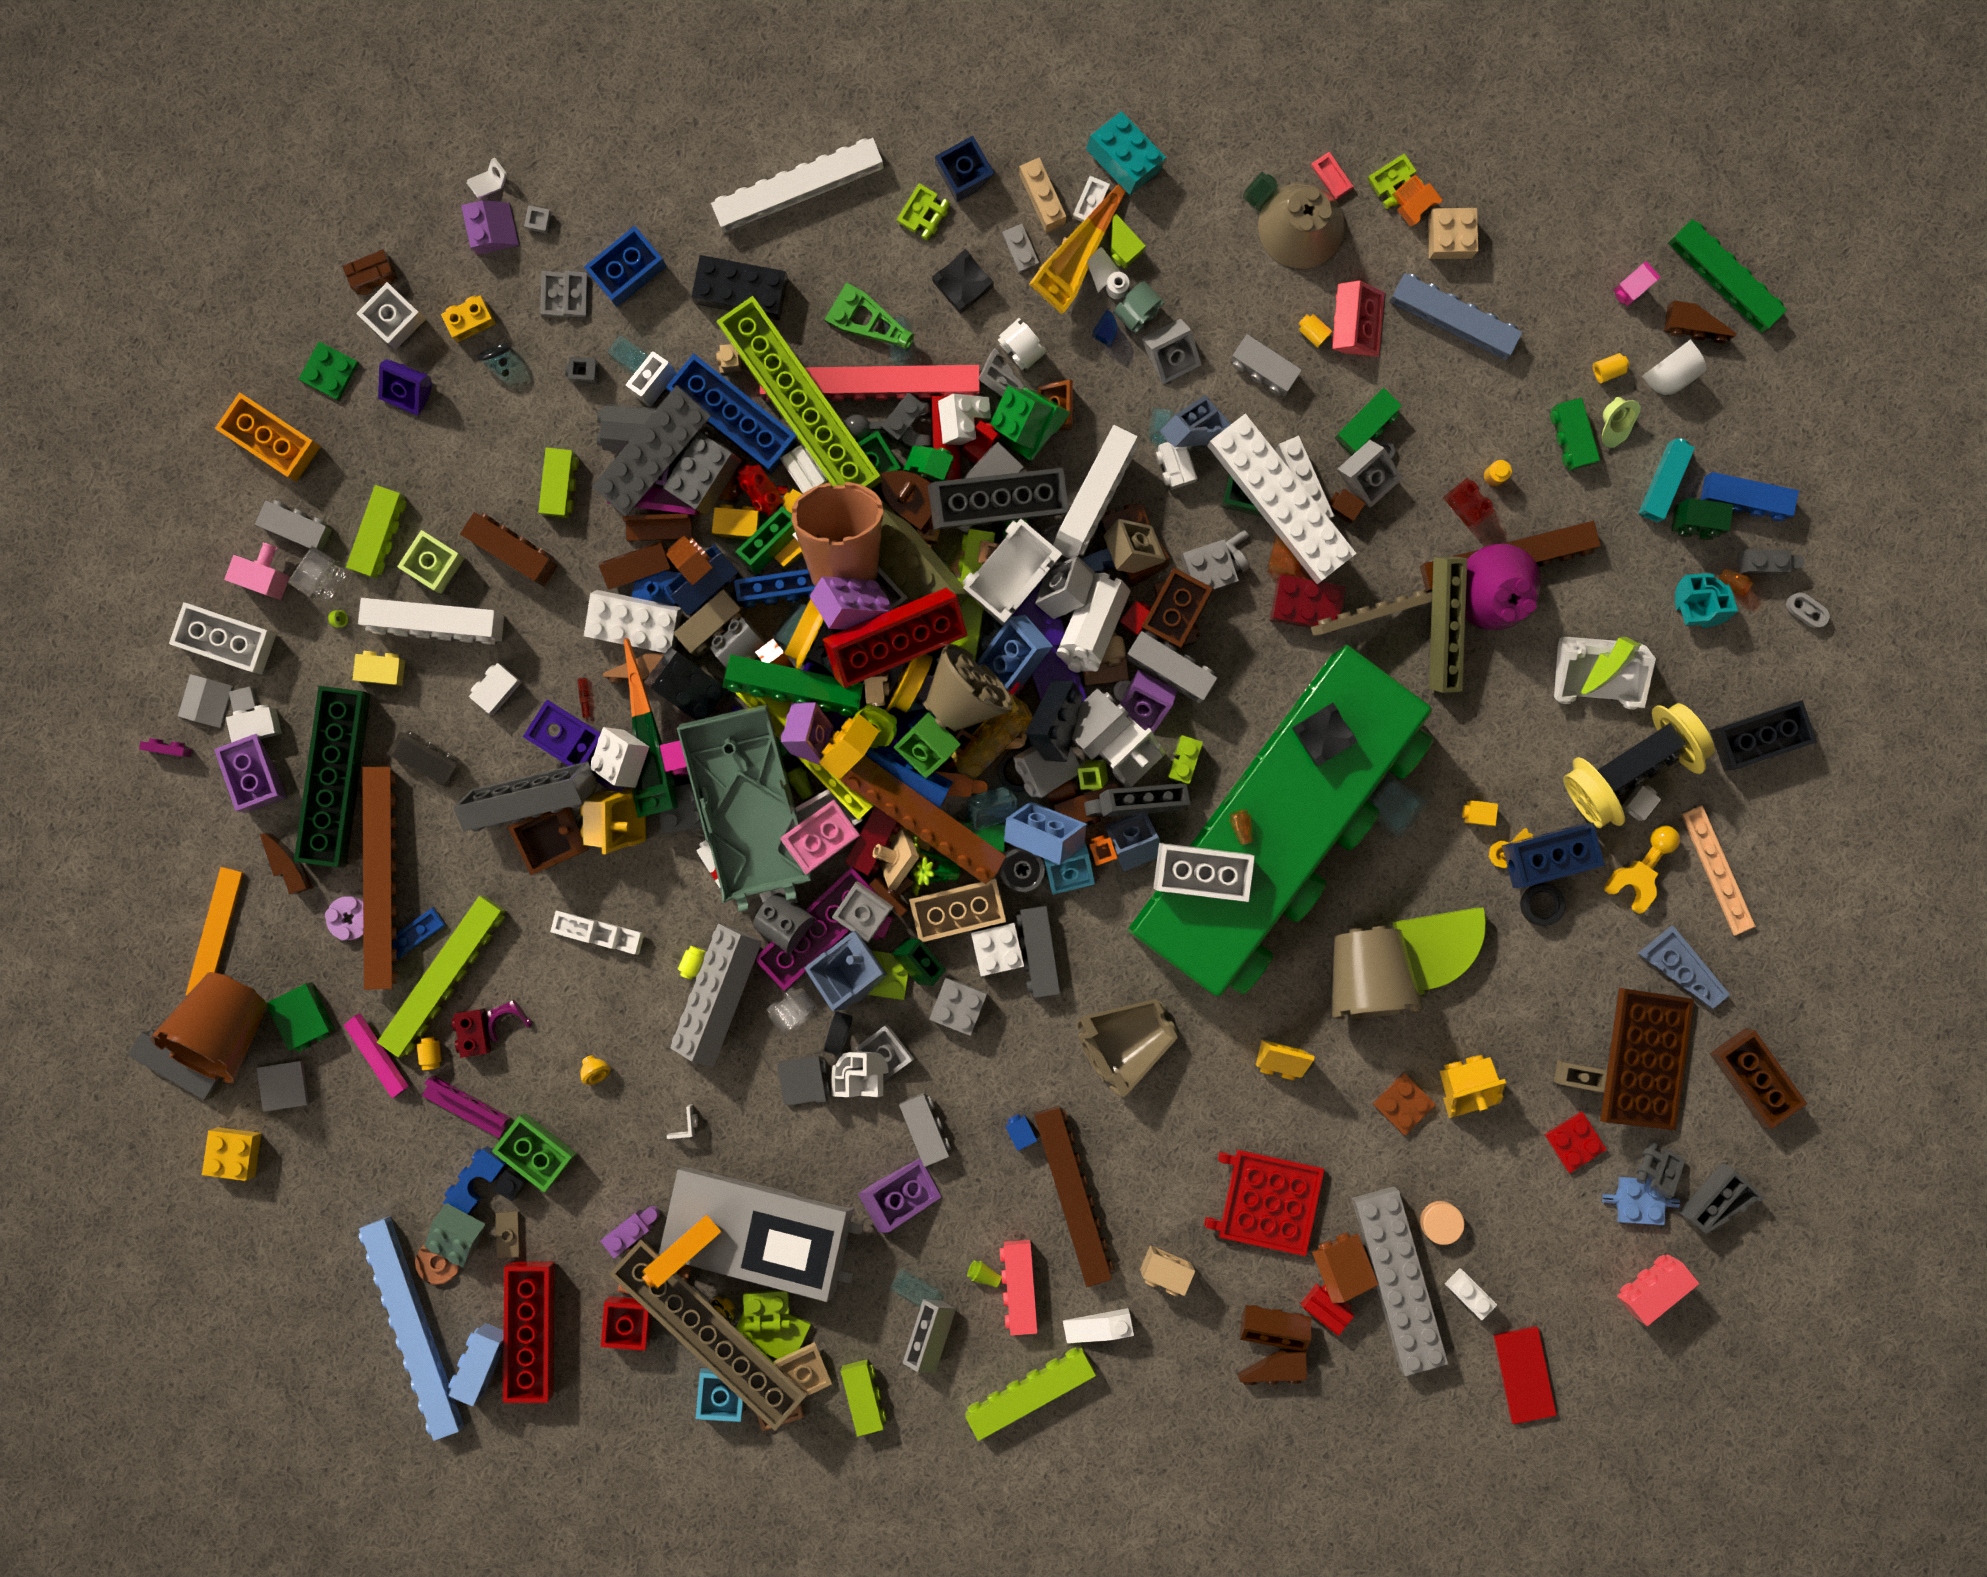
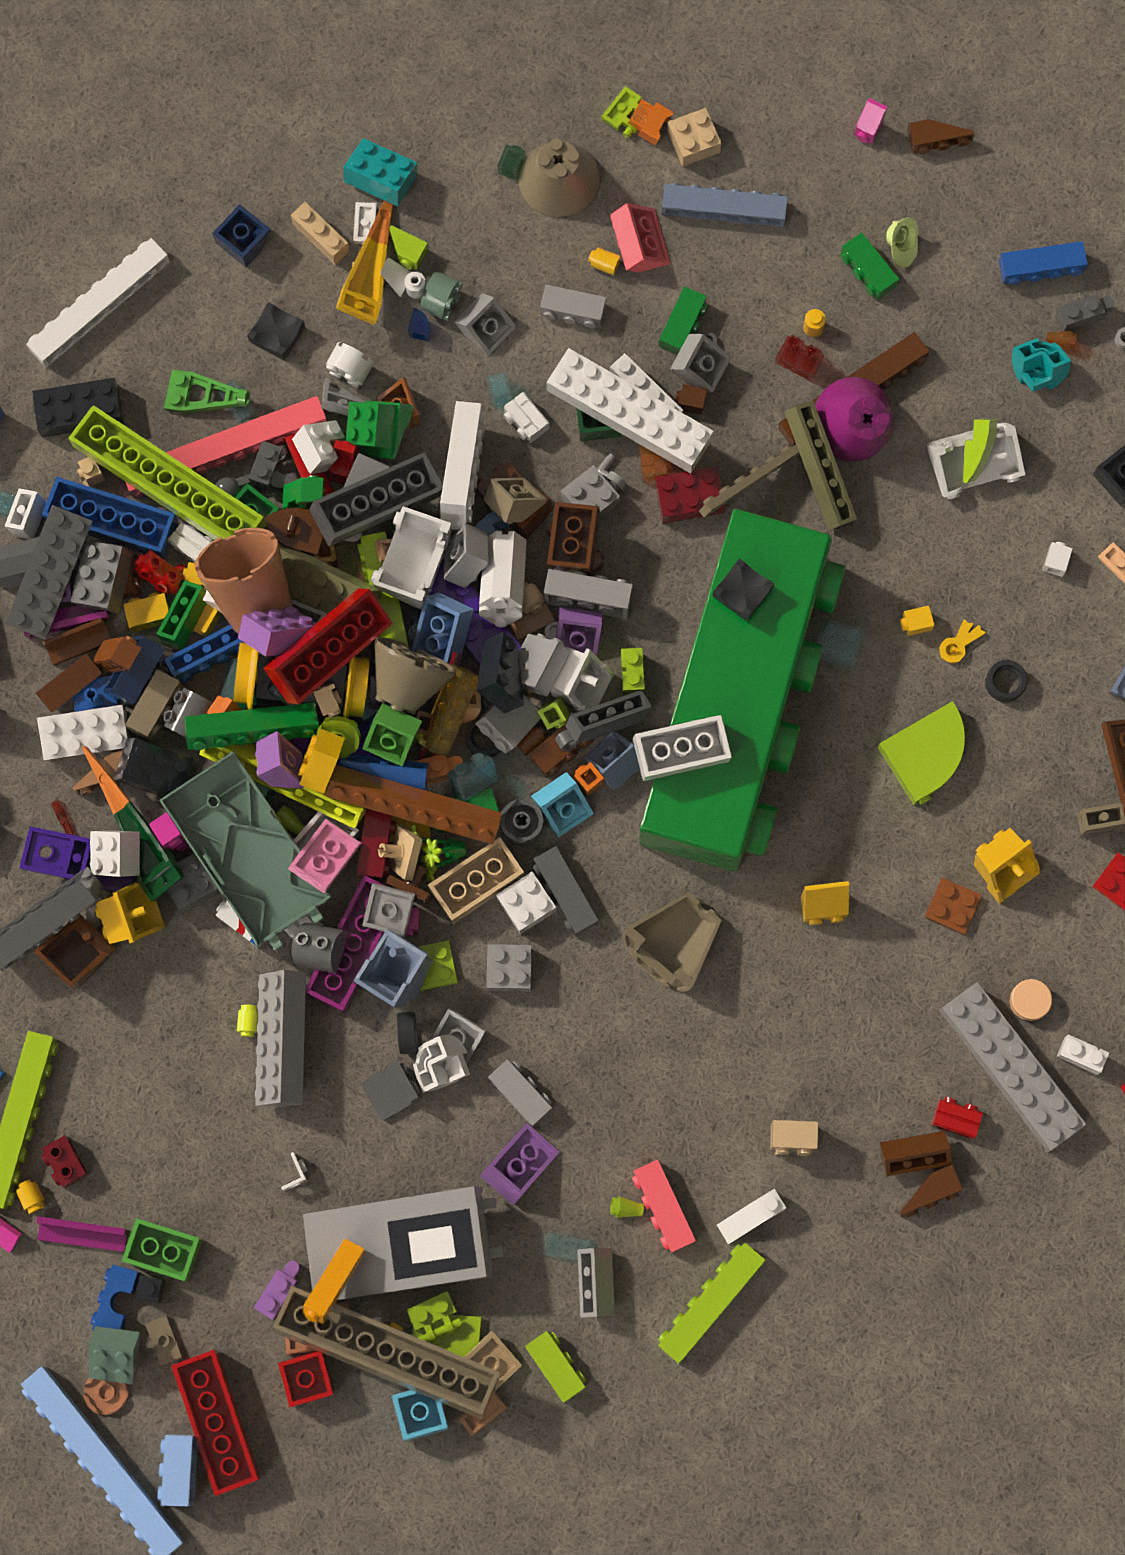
camera: 15 degrees left, 10 degrees down
(510, 1007) = (83, 1133): magenta helmet -> none
(594, 1070) = (192, 1154): yellow brick -> none
(597, 932) = (150, 1026): white slope -> none
(792, 1011) = (357, 1028): clear brick -> none
(917, 208) = (213, 283): lime plate -> none
(919, 962) = (458, 939): dark green brick -> none
(1020, 248) = (317, 285): light grey plate -> none
(1020, 1131) = (610, 1061): blue brick -> none
(1045, 832) = (529, 778): medium blue brick -> none
(1073, 1197) = (681, 1103): reddish brown brick -> none
(1135, 617) = (538, 564): red brick -> none
(1195, 424) = (527, 376): sand blue wedge -> none
(1242, 826) = (701, 697): clear orange cone -> none
(1269, 1202) = (864, 1040): red plate -> none
(1332, 176) = (570, 127): coral tile -> none
(1344, 1267) = (956, 1071): dark orange brick -> none
(1372, 975) = (876, 796): dark tan cone -> none
(1541, 848) = (1012, 620): dark blue brick -> none
(1610, 367) = (877, 199): yellow brick -> none
(1641, 874) = (1083, 620): yellow piece -> none
(1666, 480) = (965, 276): teal brick -> none
(1676, 370) = (935, 180): white brick -> none
(1678, 738) = (1062, 489): light yellow brick -> none
(1702, 518) = (1008, 295): dark green brick -> none
(1727, 276) = (947, 87): green brick -> none

